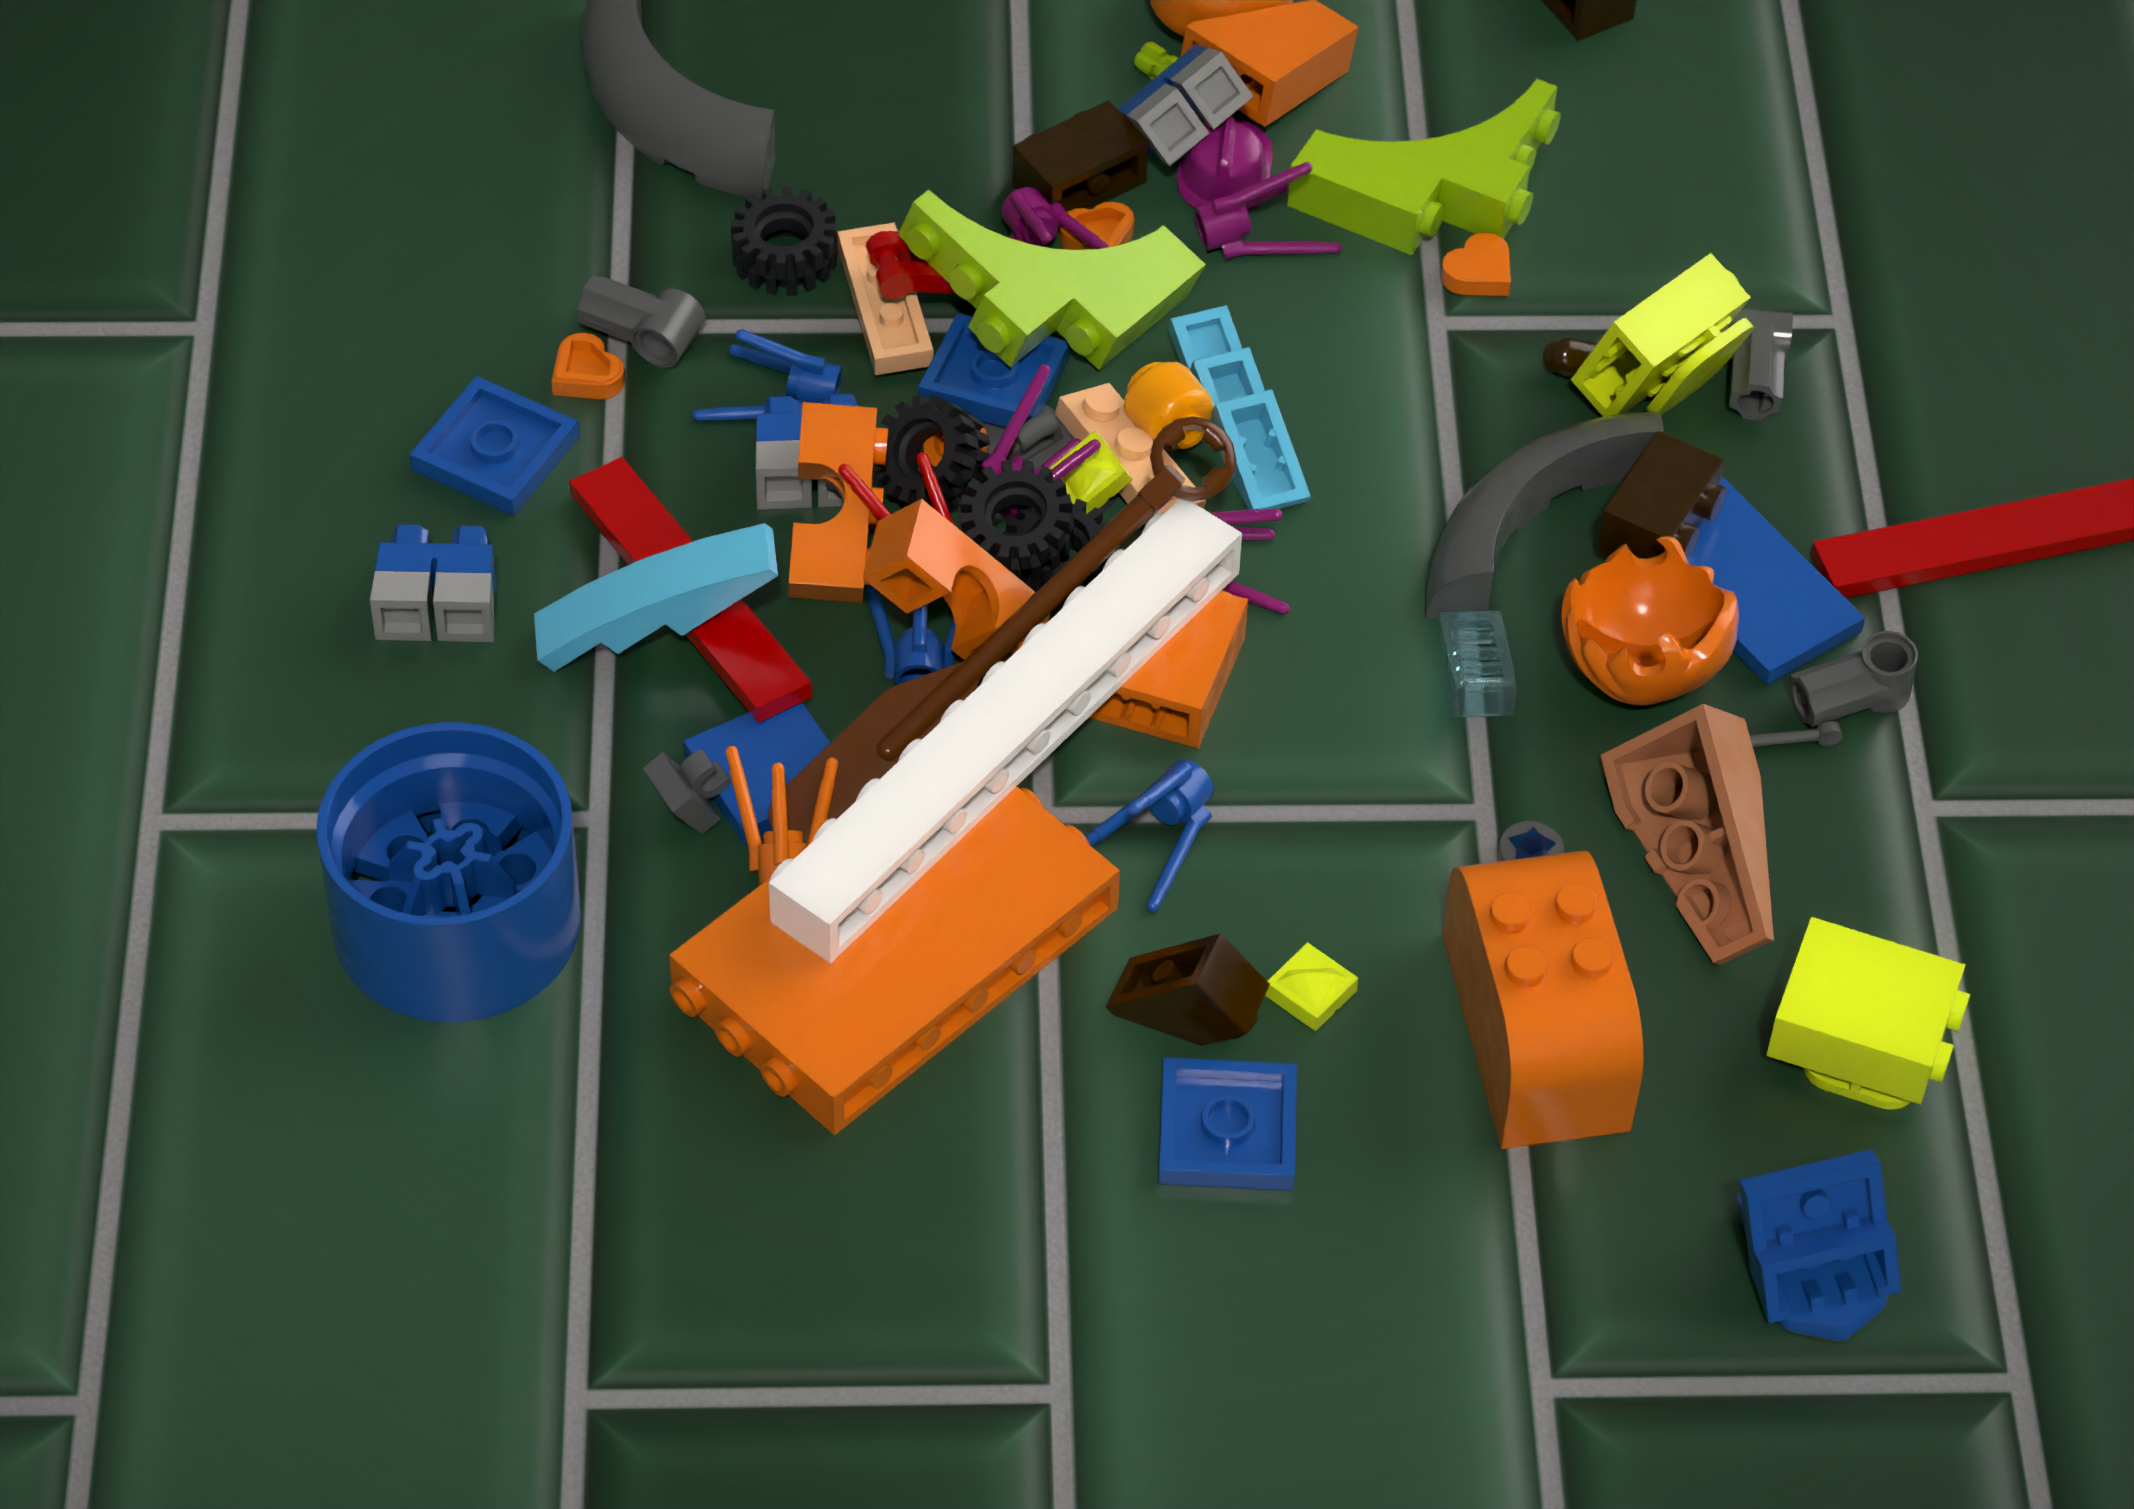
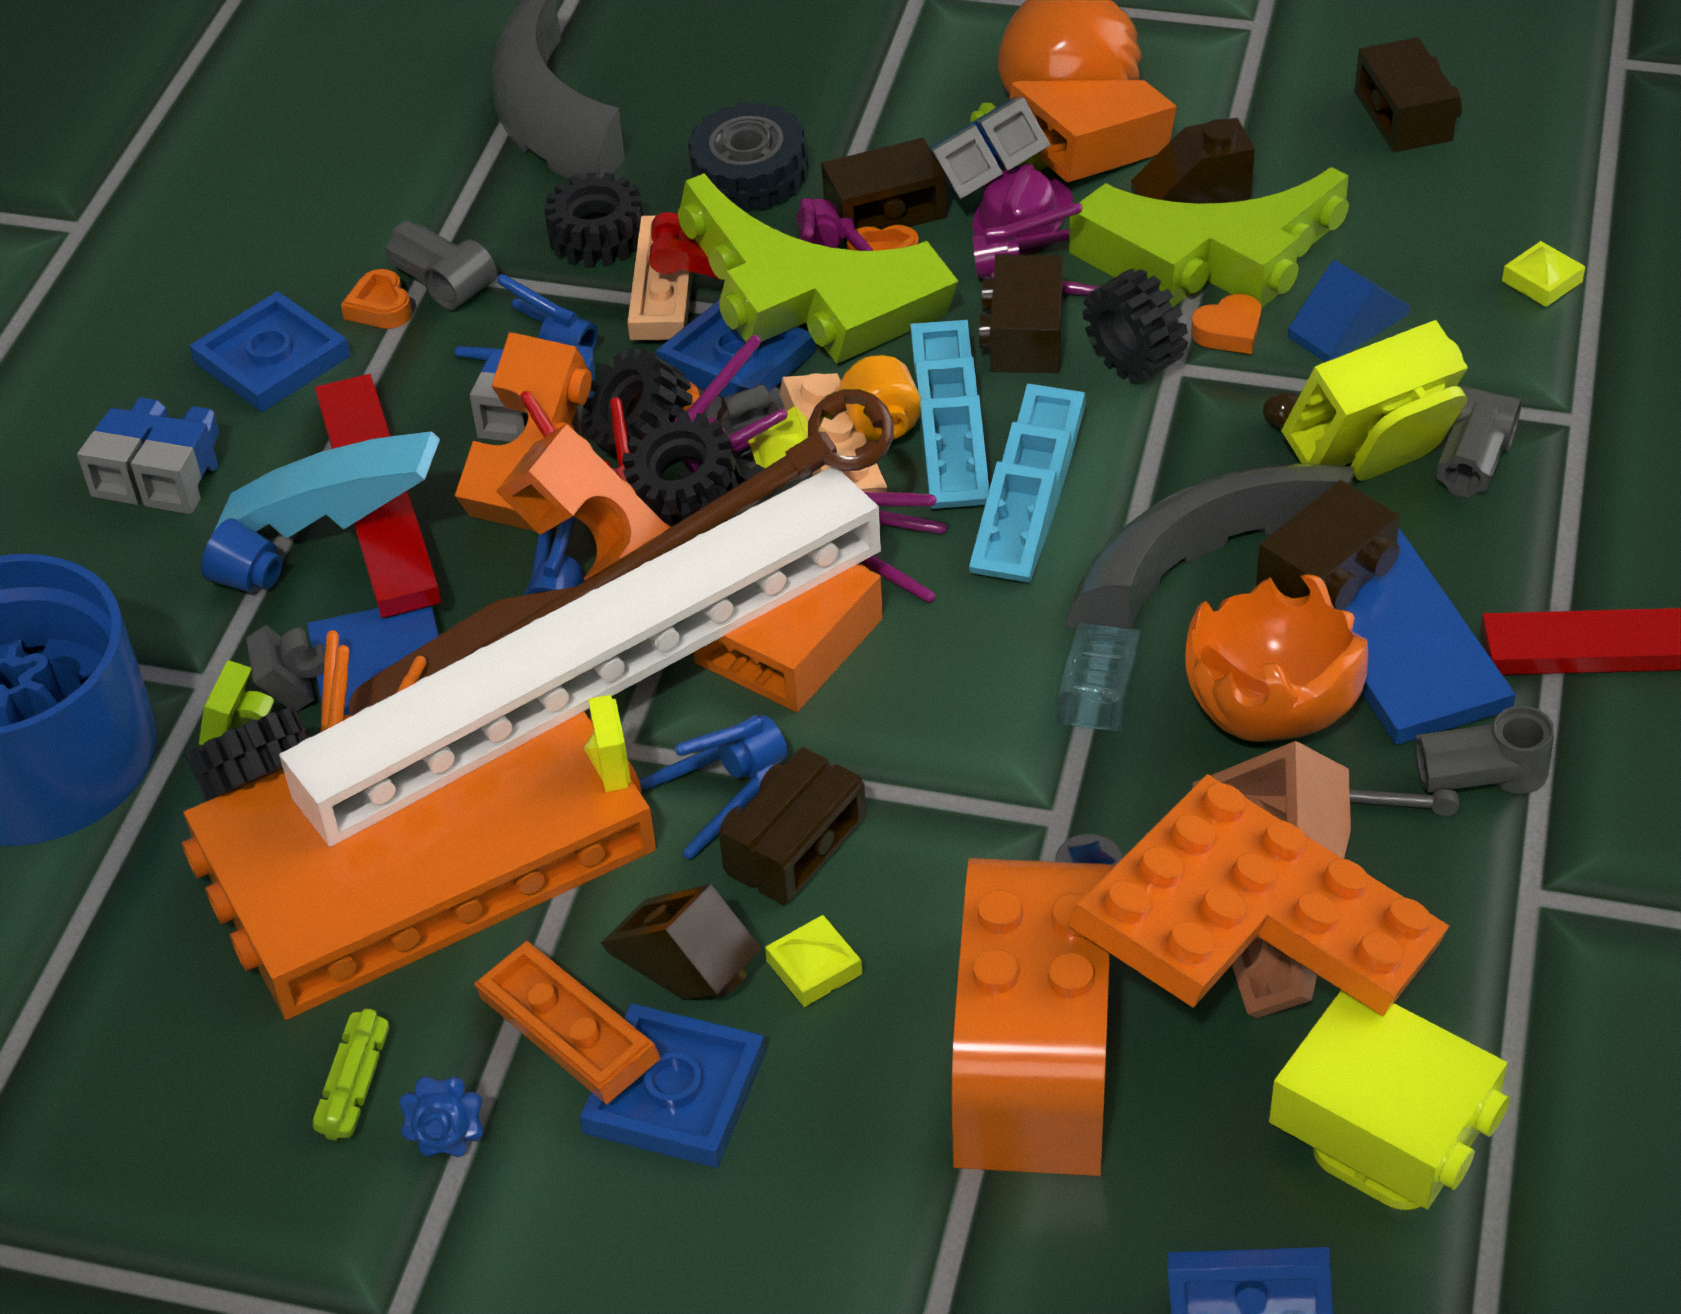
camera: 20 degrees right, 5 degrees down
(587, 684) = (240, 558): none -> blue hat
(654, 843) = (232, 703): none -> lime tile
(708, 887) = (245, 752): none -> black tyre
(920, 141) = (751, 154): none -> black wheel
(928, 1172) = (350, 1075): none -> lime axle
(1035, 1192) = (441, 1116): none -> blue plant
(1067, 815) = (607, 744): none -> neon yellow tile
(1111, 1085) = (567, 1022): none -> orange tile
(1248, 861) = (791, 825): none -> dark brown brick
(1276, 287) = (1024, 313): none -> dark brown brick
(1343, 473) = (1028, 483): none -> medium azure slope
(1397, 94) = (1201, 166): none -> dark brown slope
(1398, 288) = (1135, 325): none -> black tyre
(1589, 240) = (1344, 313): none -> blue slope
(1694, 842) = (1234, 872): none -> orange plate
(1767, 165) = (1543, 273): none -> neon yellow tile

